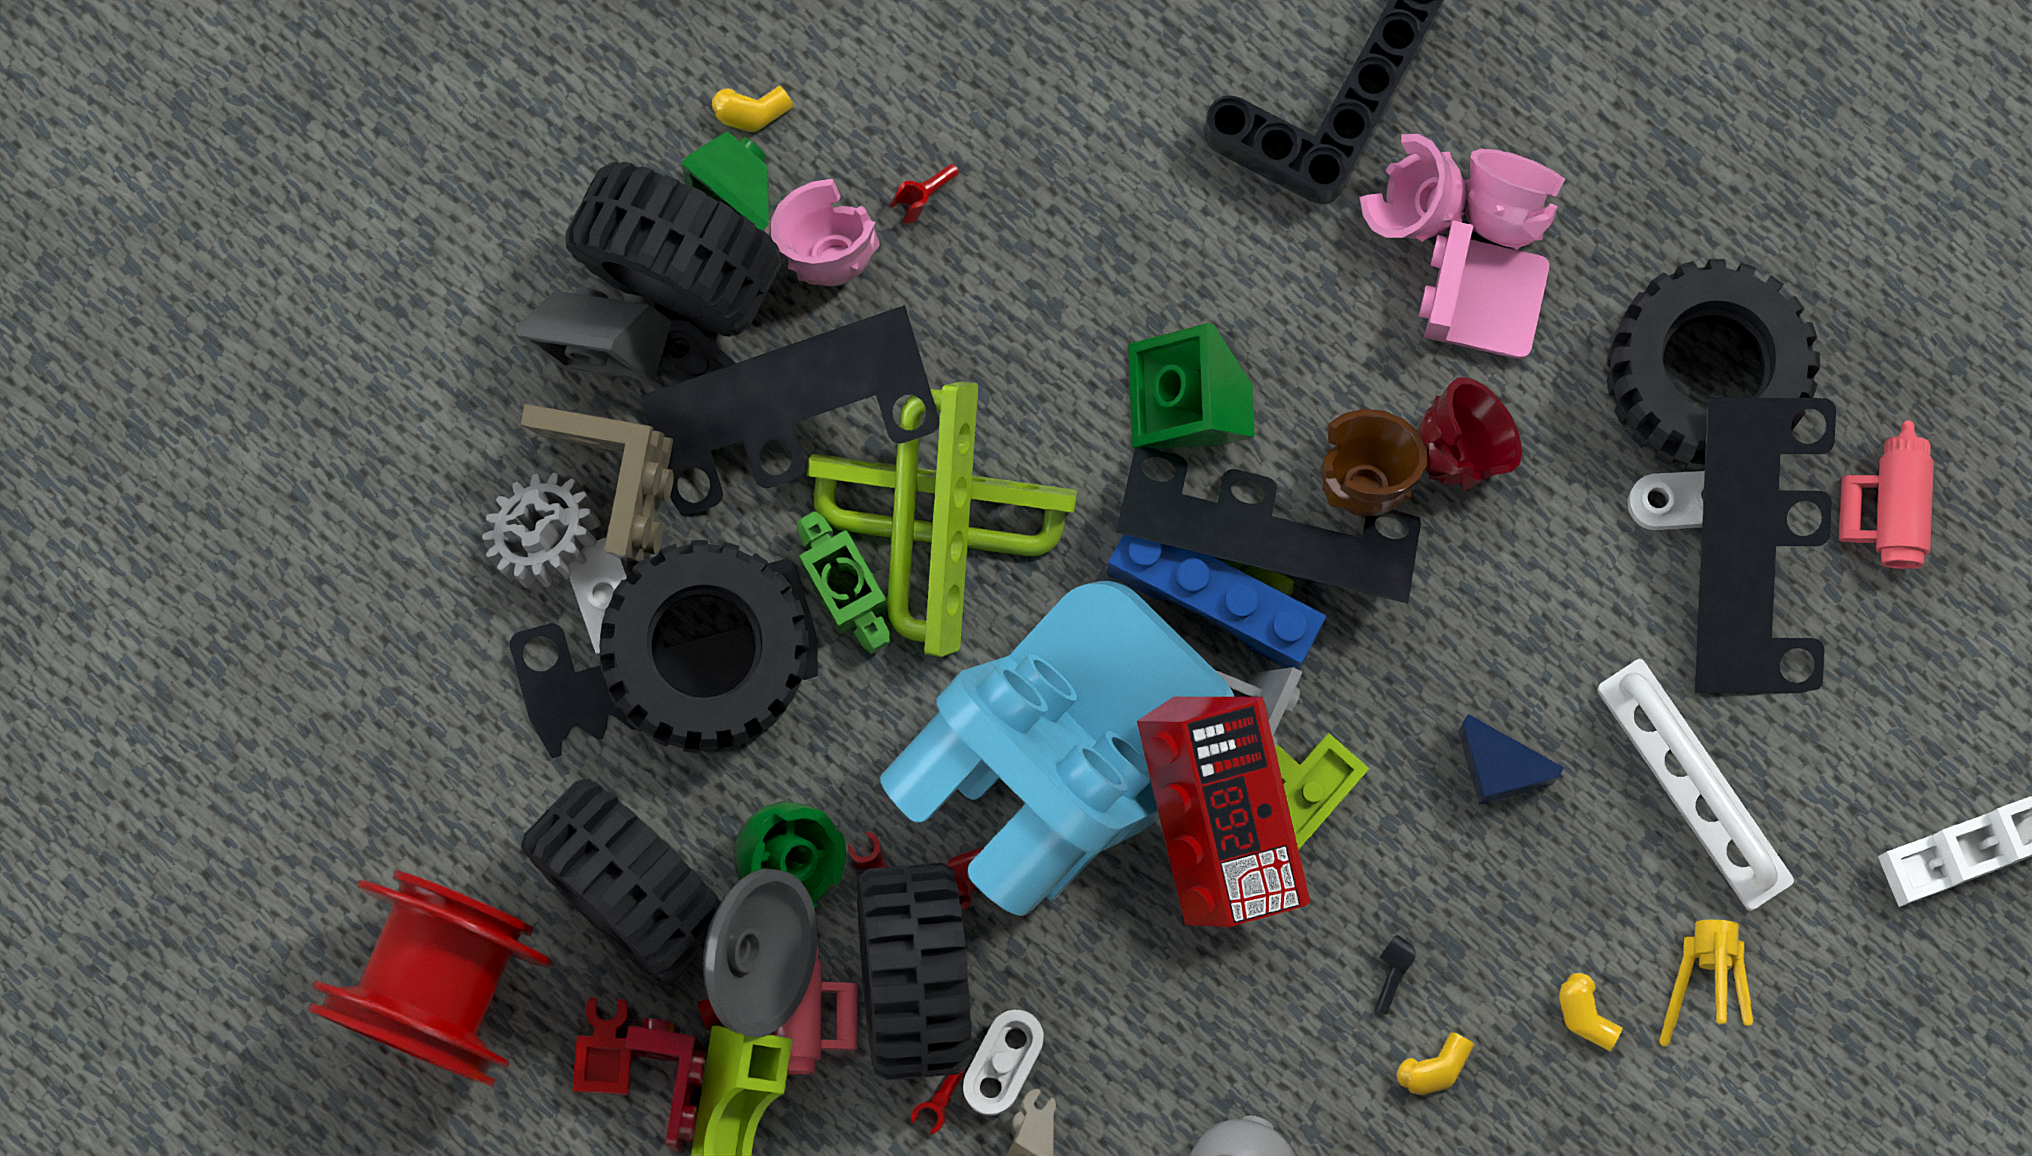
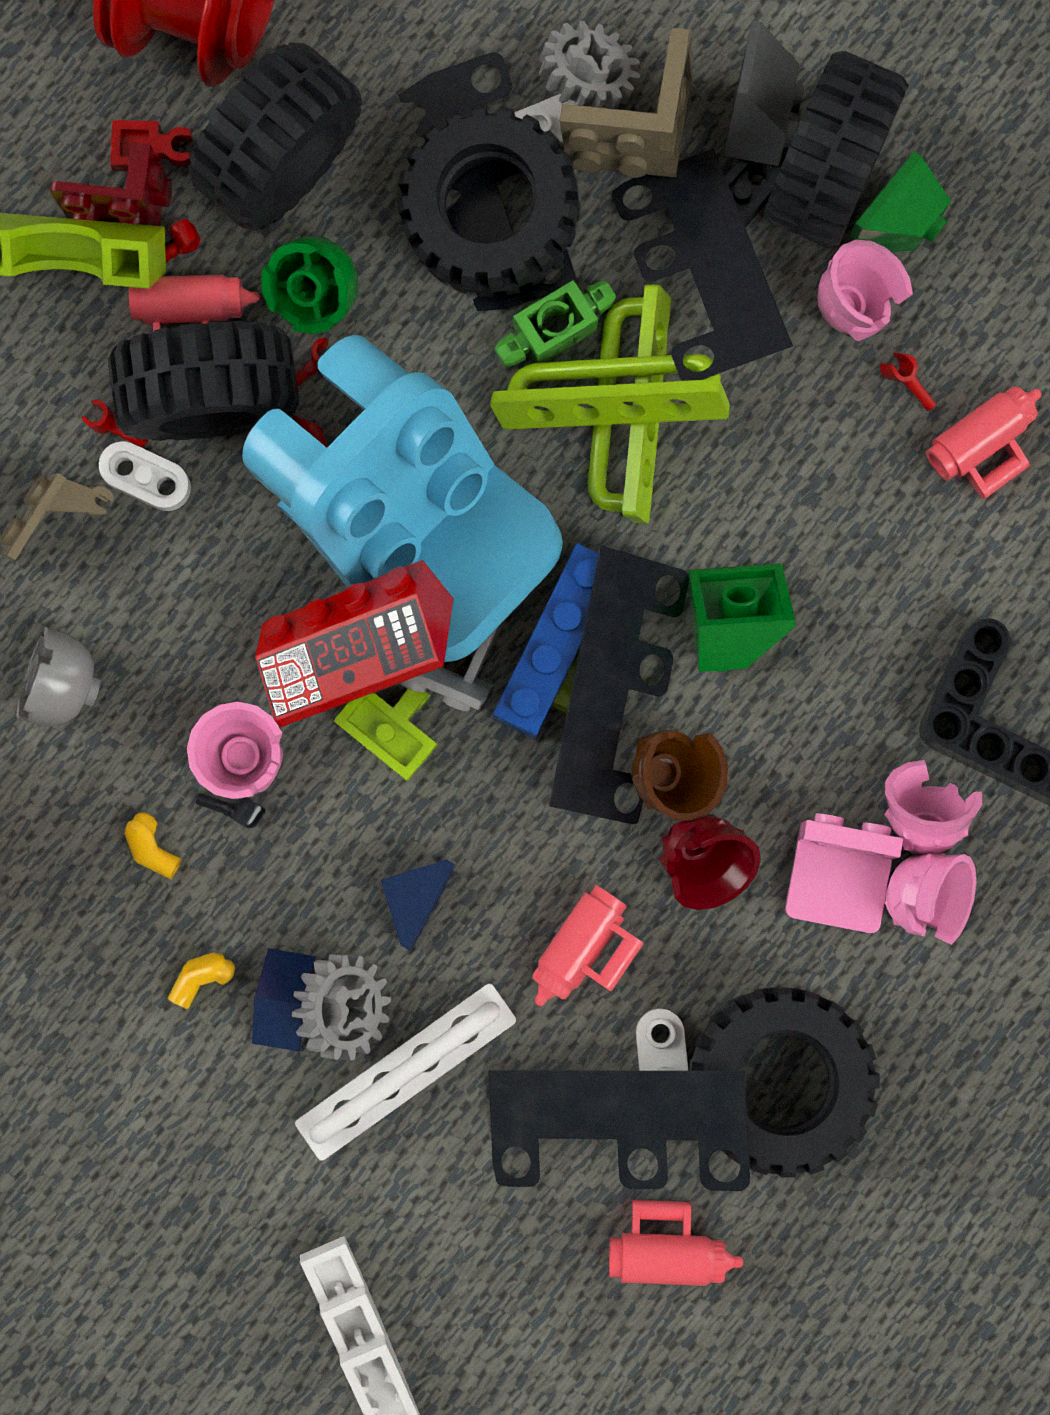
camera: 90 degrees right, 5 degrees up
(748, 113) = (971, 228): yellow arm -> none
(760, 952) = (212, 248): dark grey dish -> none
(993, 115) = (983, 434): none -> coral piece
(1335, 954) = (235, 750): none -> bright pink helmet
(1556, 581) = (580, 945): none -> coral piece
(1613, 918) = (275, 1000): none -> dark blue slope
(1625, 846) = (341, 1007): none -> light grey gear
(1718, 949) = (259, 1090): yellow plant -> none

